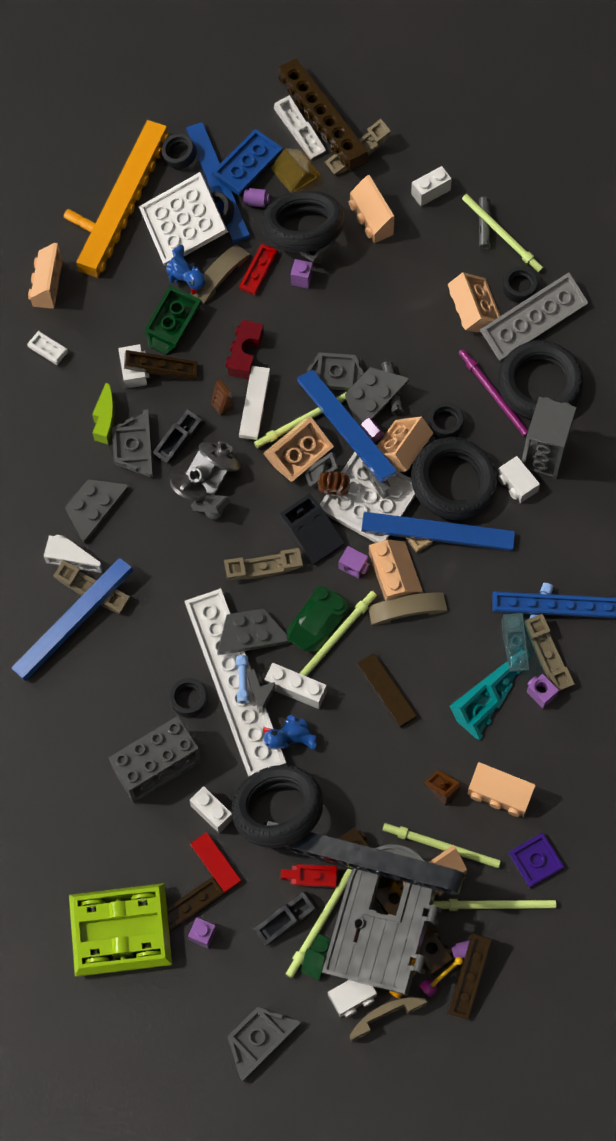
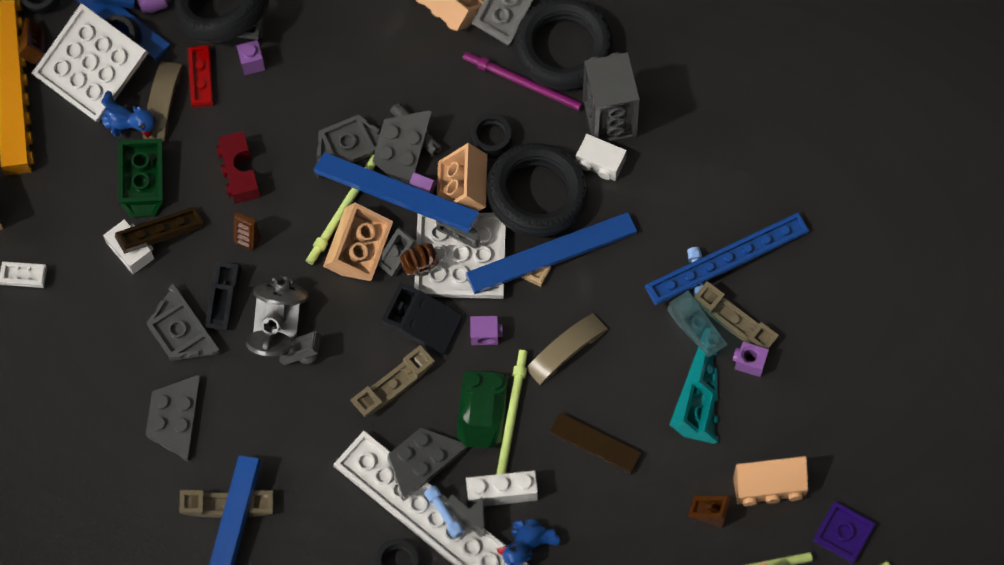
camera: 30 degrees left, 0 degrees up
(61, 548) = (171, 479): white slope -> none
(104, 416) = (130, 315): lime slope -> none
(150, 184) = (32, 44): none -> reddish brown slope
(254, 402) = (282, 218): white slope -> none
(394, 569) = (530, 316): light nougat slope -> none

